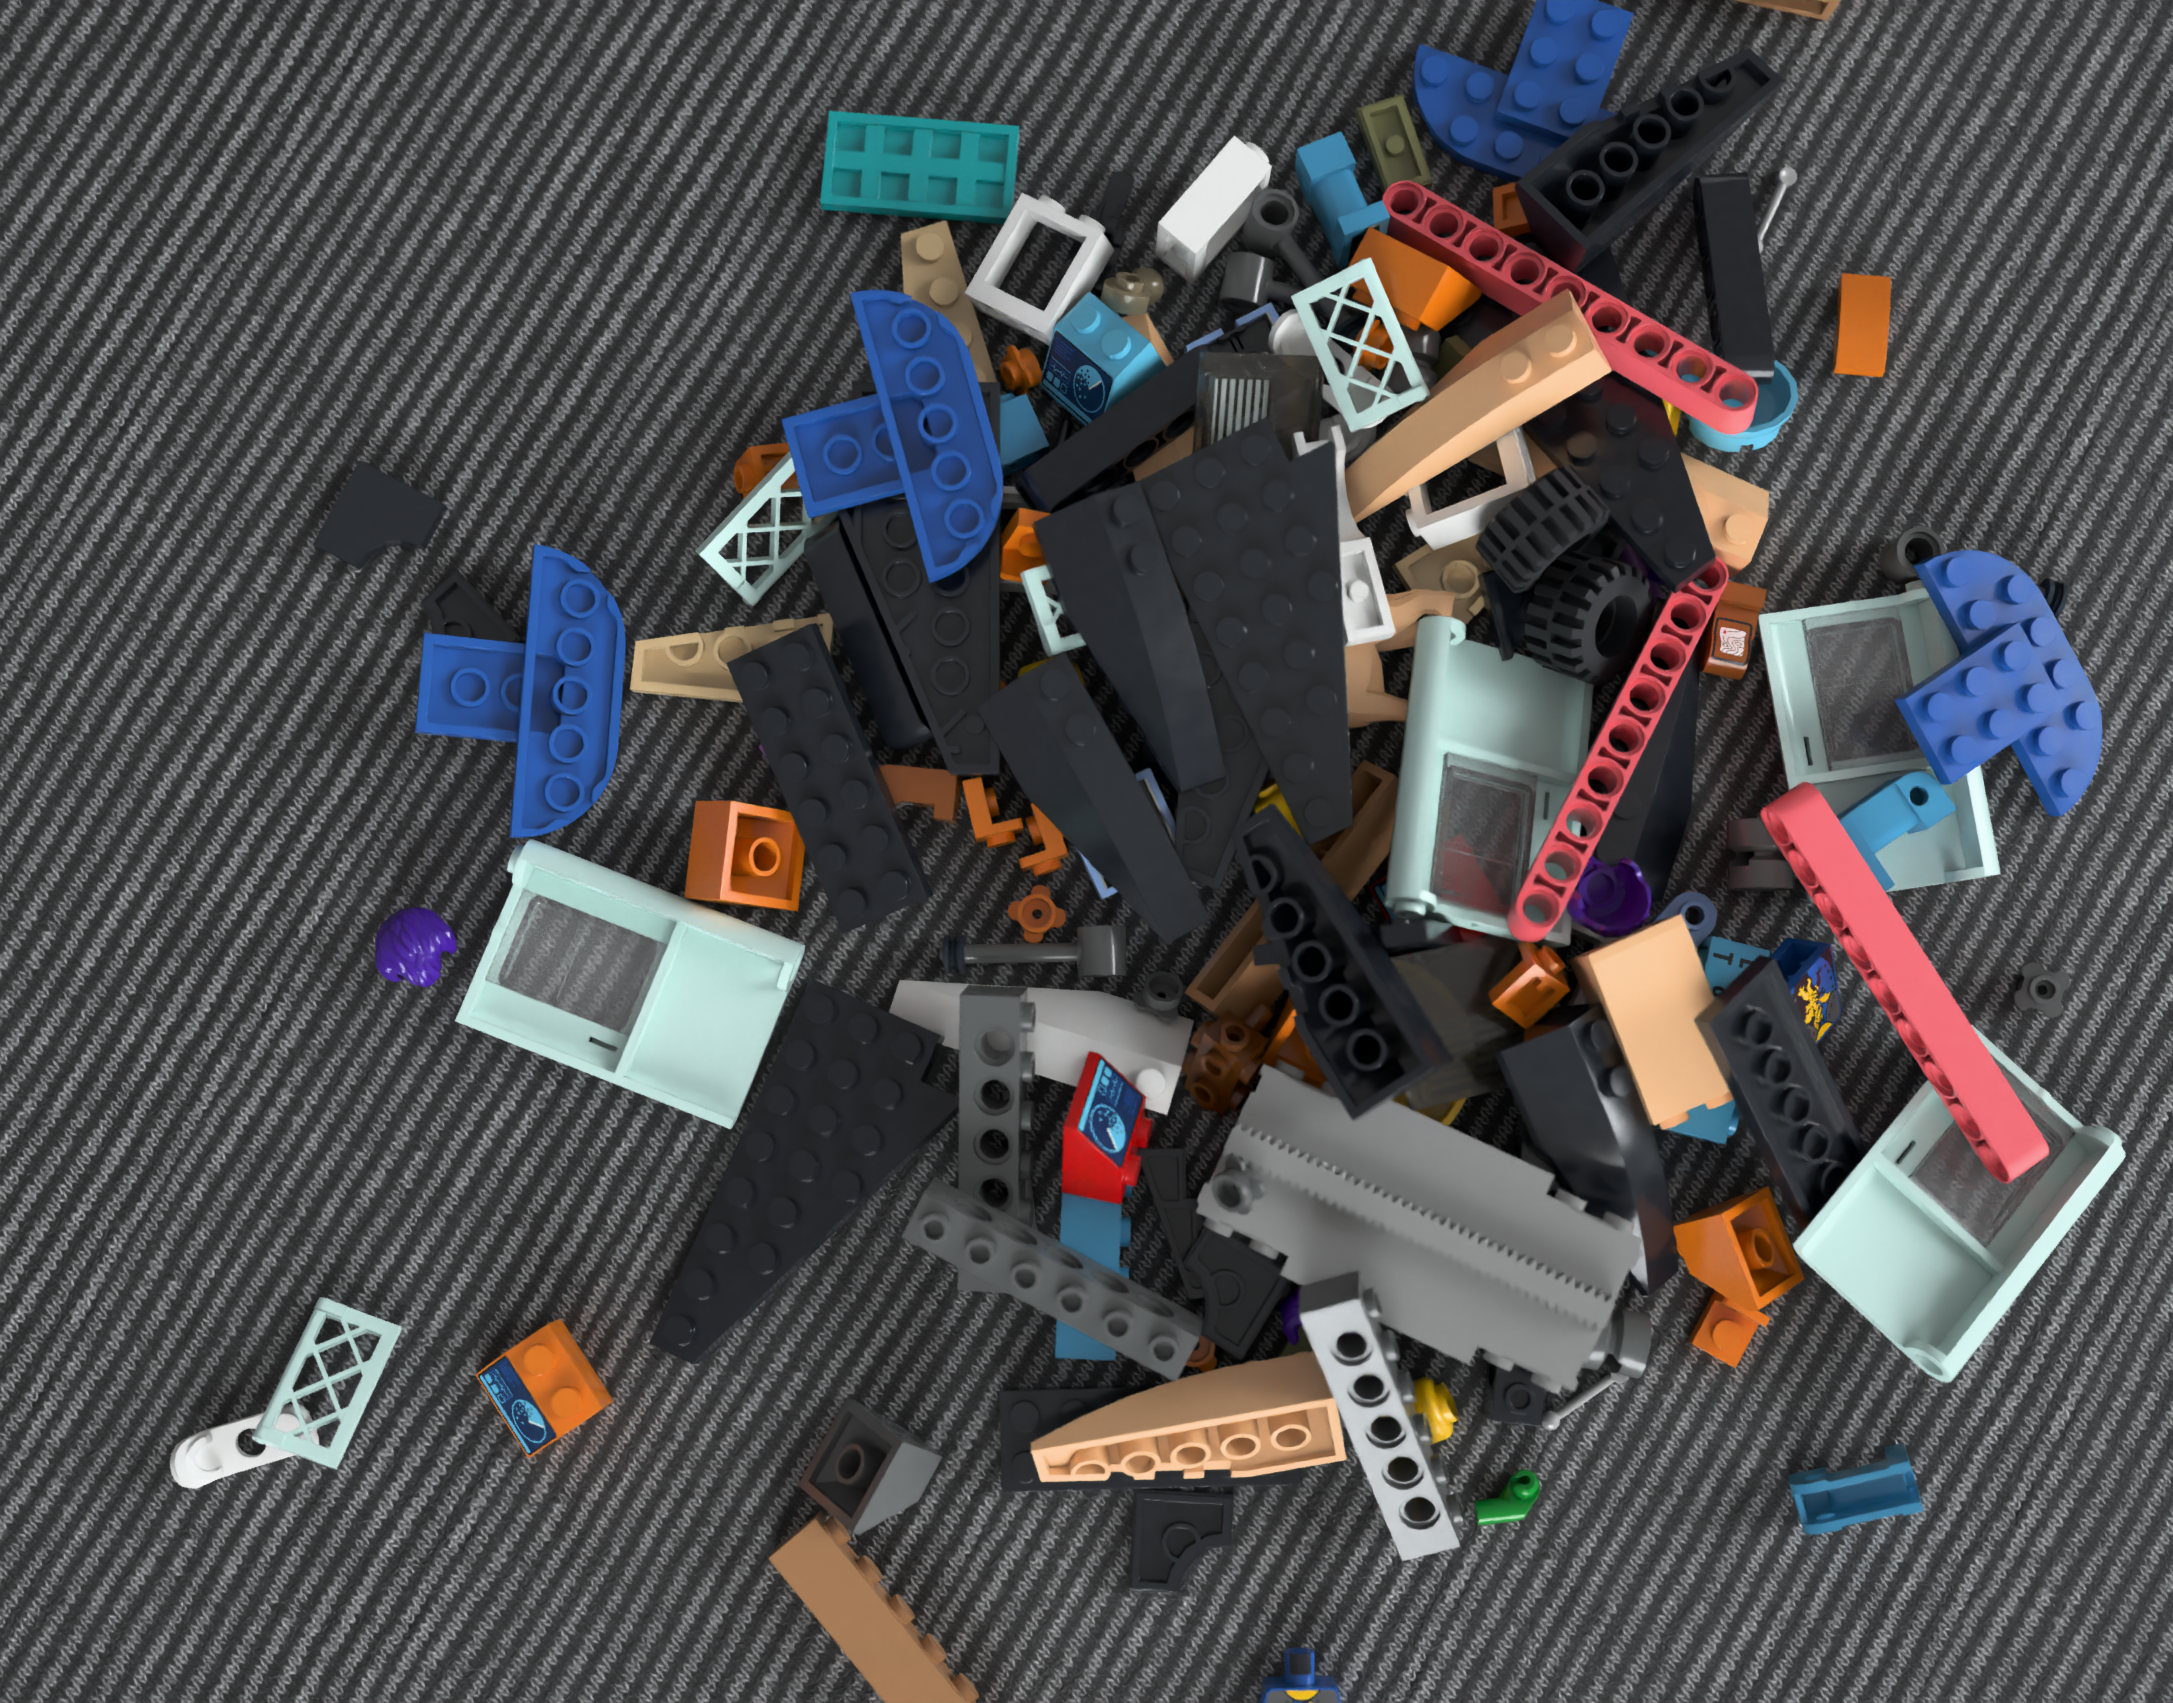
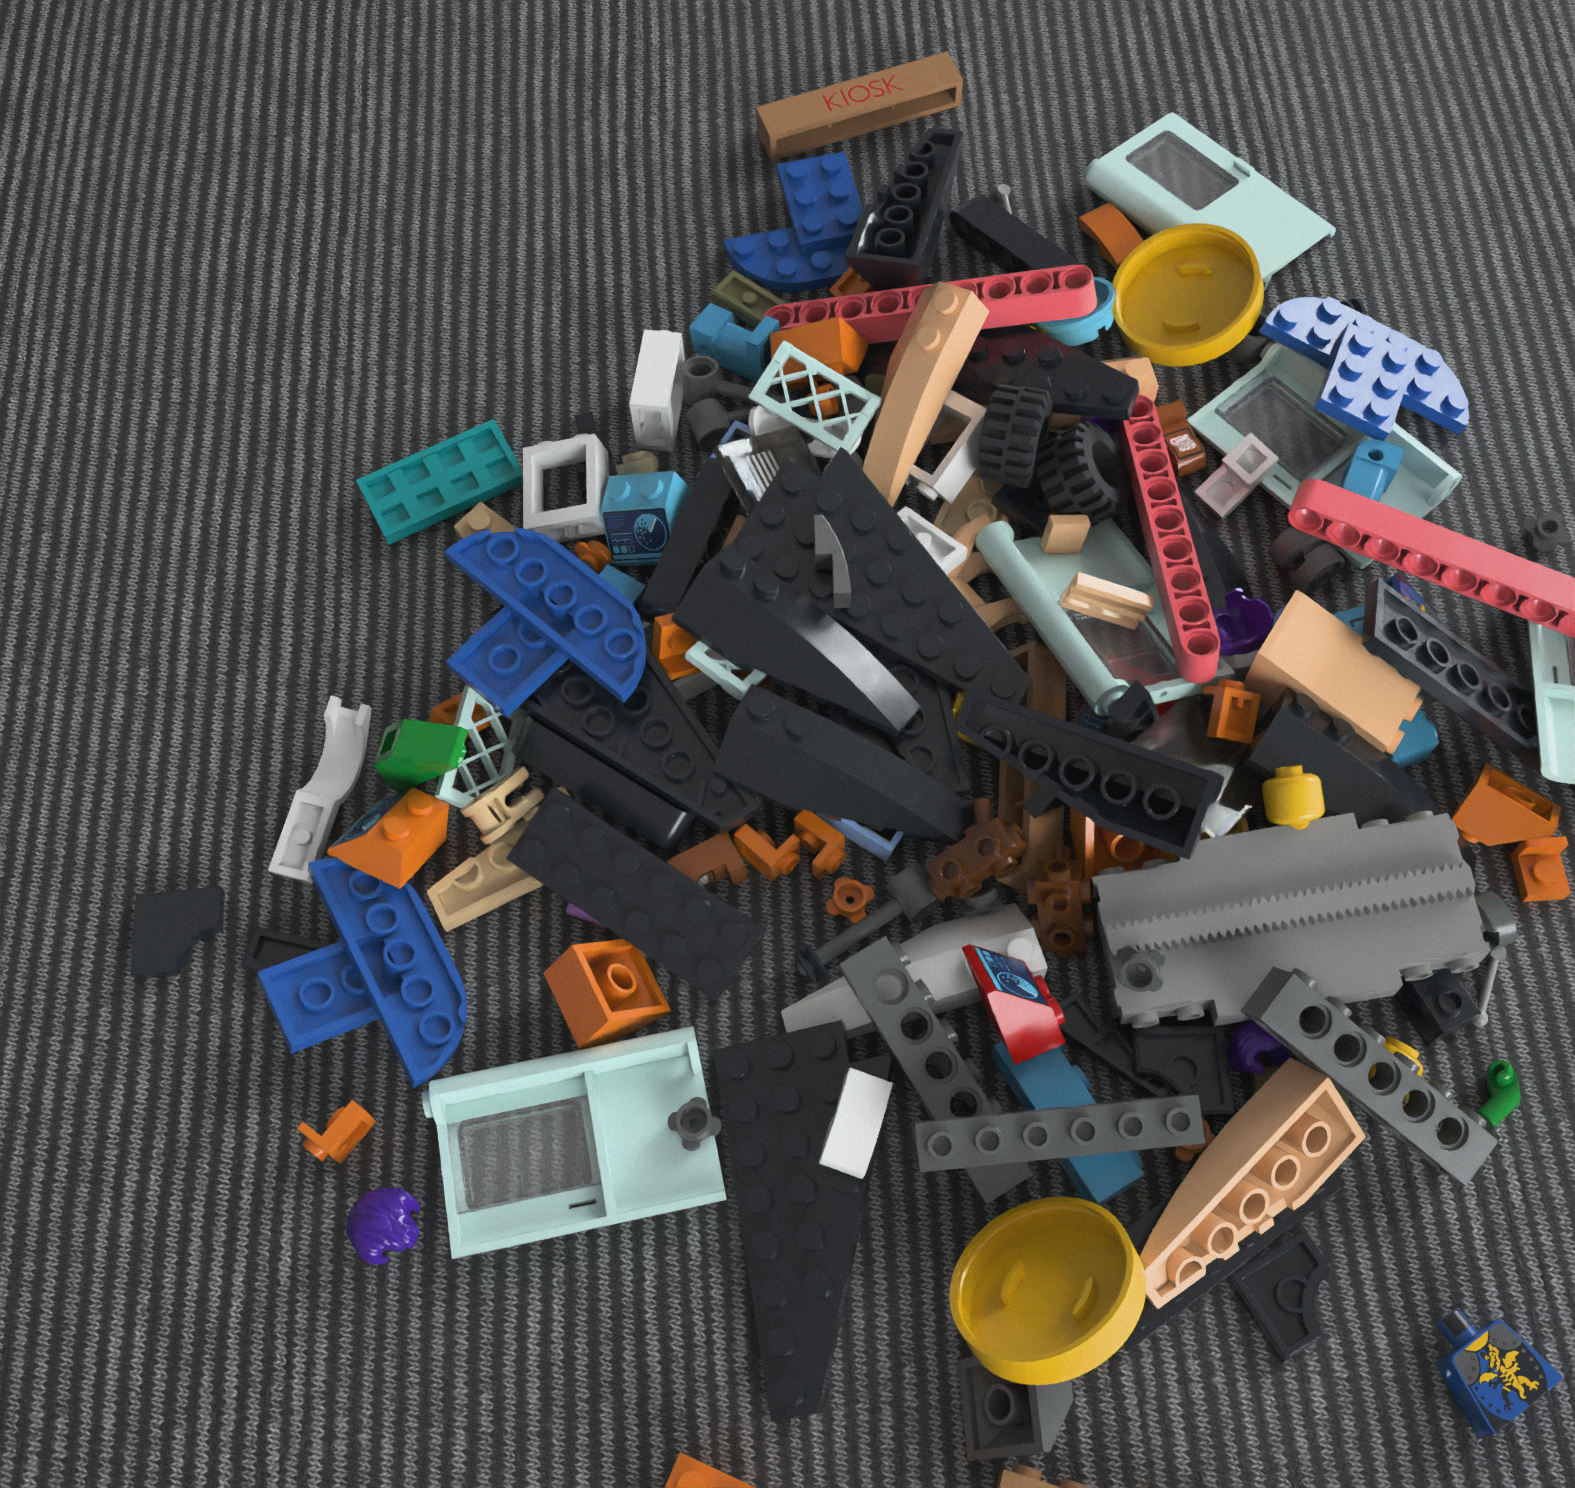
camera: 30 degrees left, 20 degrees down
(427, 834) = (343, 1133): none -> orange bracket
(595, 466) = (319, 800): none -> white piece
(633, 563) = (395, 836): none -> orange slope
(704, 499) = (418, 752): none -> green slope
(735, 1030) = (696, 1110): none -> dark grey plate
(742, 594) = (490, 810): none -> tan piece
(883, 1145) = (855, 1123): none -> white slope
(951, 1404) = (1048, 1290): none -> yellow brick
(1186, 965) = (985, 850): none -> reddish brown brick
(1232, 559) = (831, 556): none -> flat silver slope
(1493, 786) = (1106, 600): none -> light nougat tile
(1510, 1120) = (1293, 797): none -> yellow head
(1521, 670) = (1065, 534): none -> light nougat tile
(1758, 717) = (1237, 477): none -> white slope
(1876, 463) = (1187, 294): none -> yellow brick
(2002, 350) = (1183, 177): none -> light aqua piece

